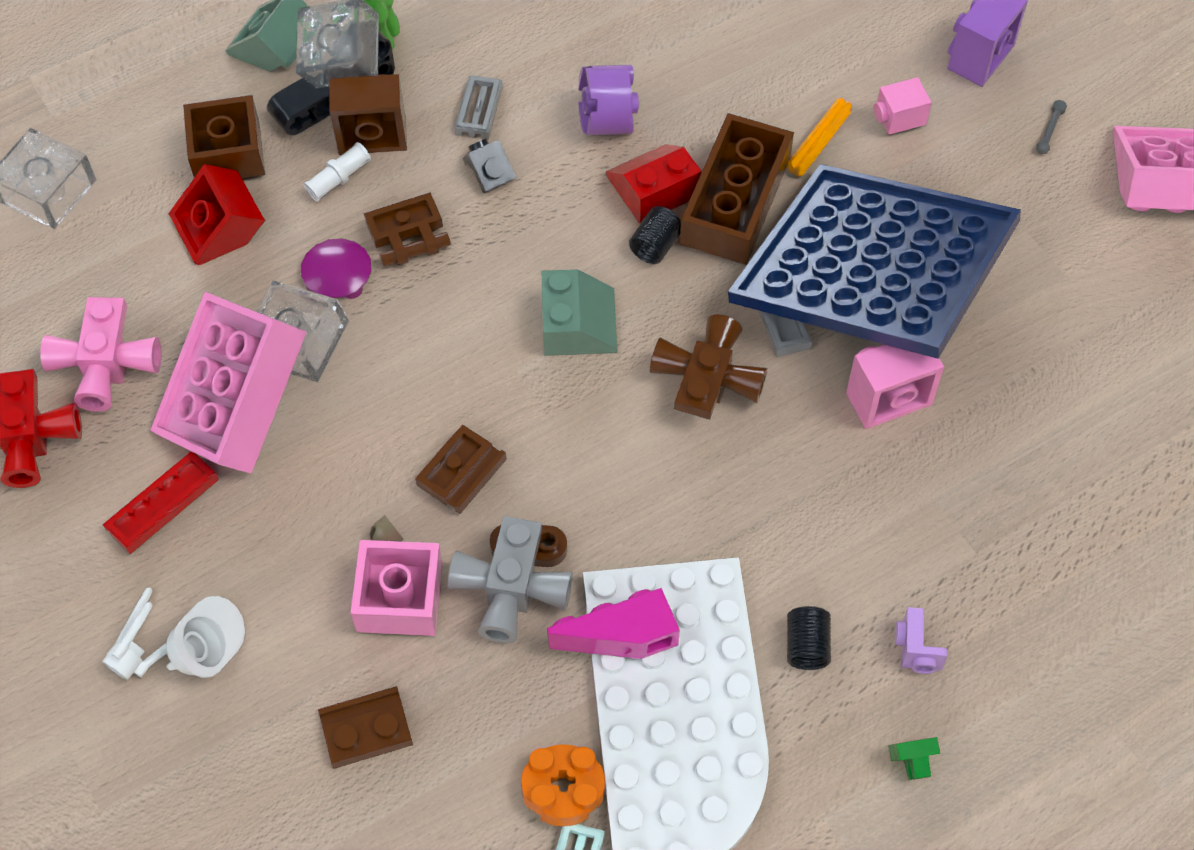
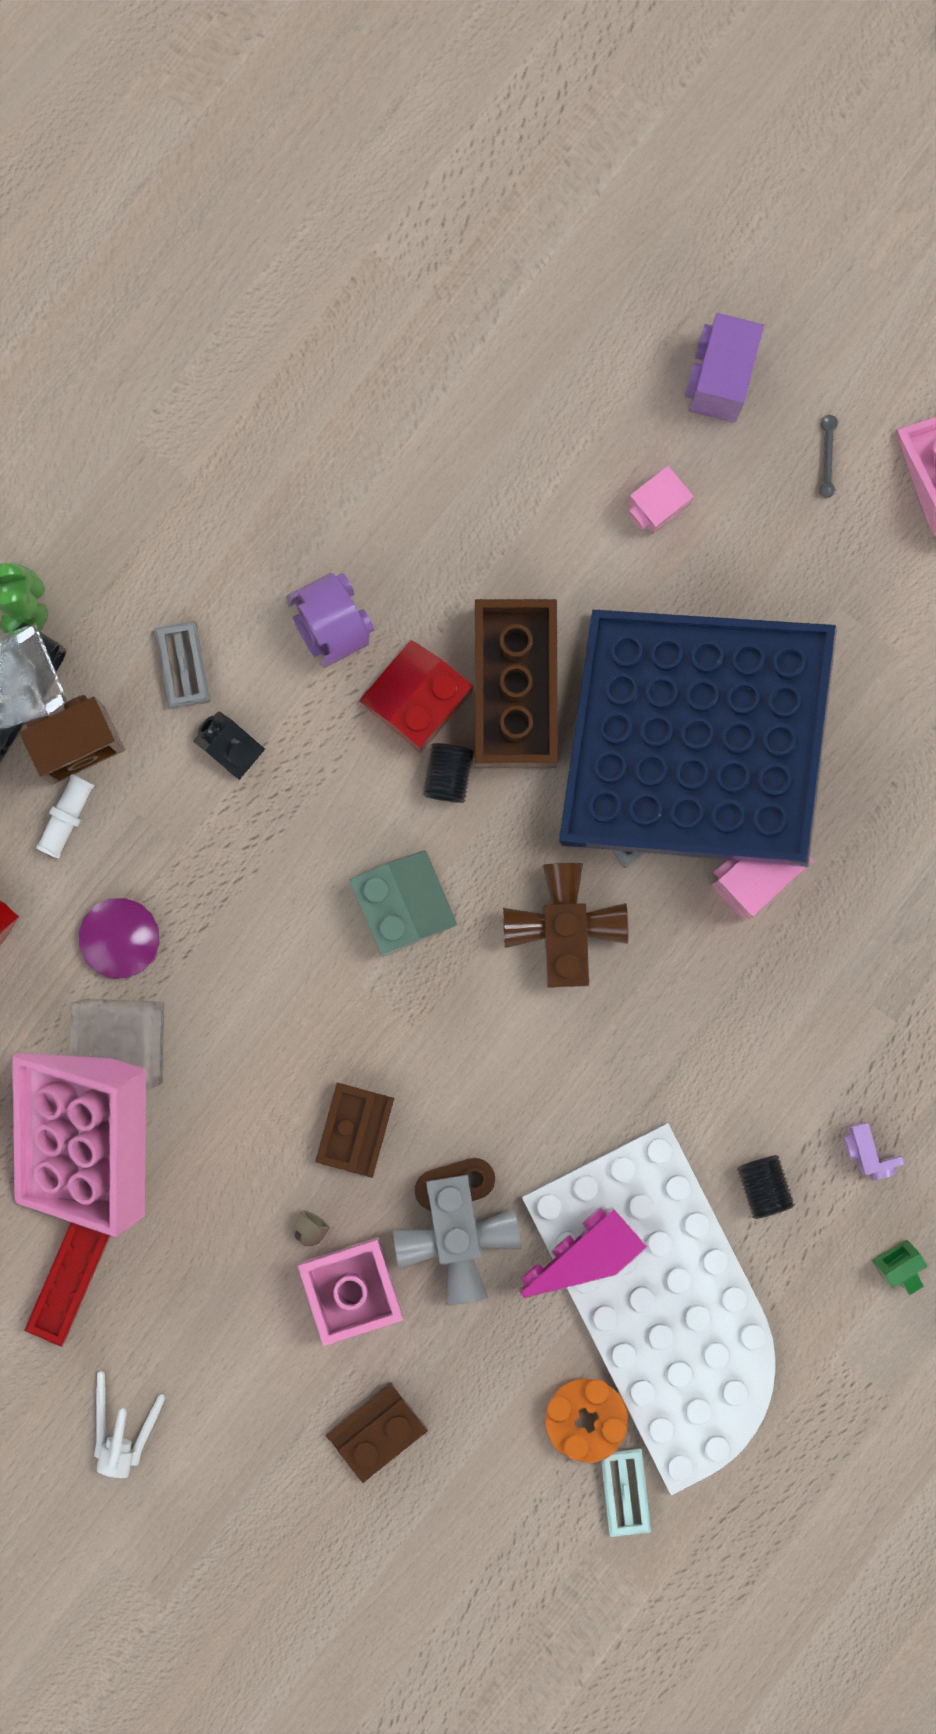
camera: 25 degrees left, 25 degrees up
(206, 638) = (188, 1412): white piece -> none
(404, 221) = (166, 854): reddish brown plate -> none
(819, 137) = (578, 567): light orange axle -> none

